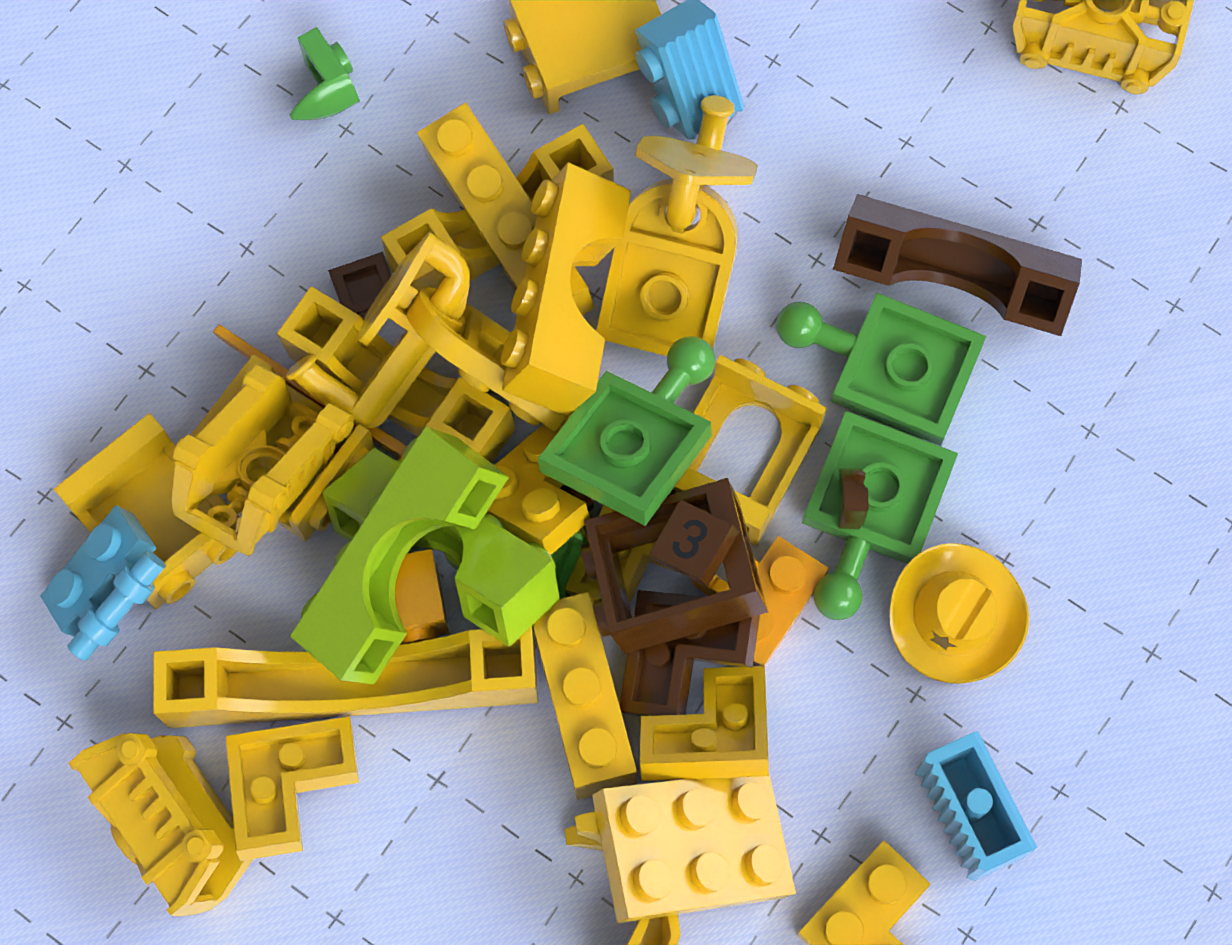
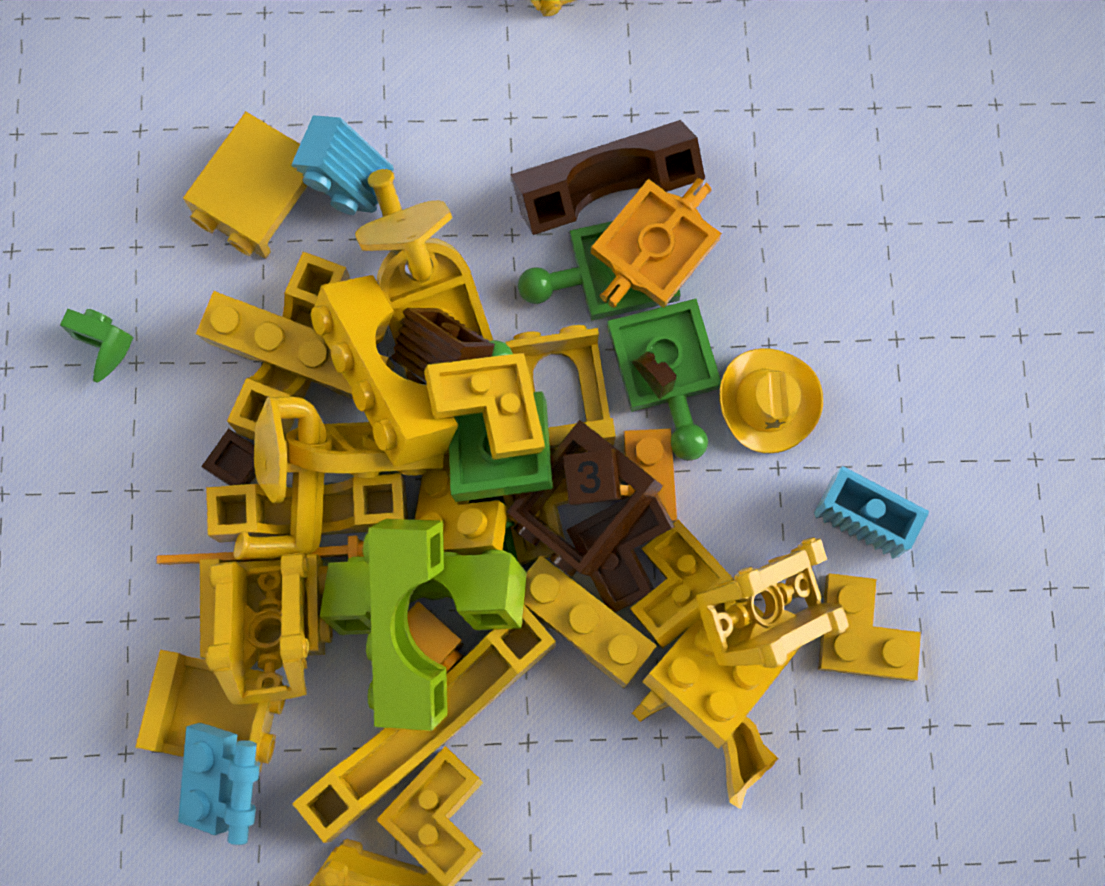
camera: 40 degrees left, 5 degrees up
(641, 318) = (435, 338): none -> reddish brown brick
(662, 386) = (497, 389): none -> yellow plate
(780, 850) = (778, 631): none -> yellow piece
(955, 364) = (656, 243): none -> light orange plate

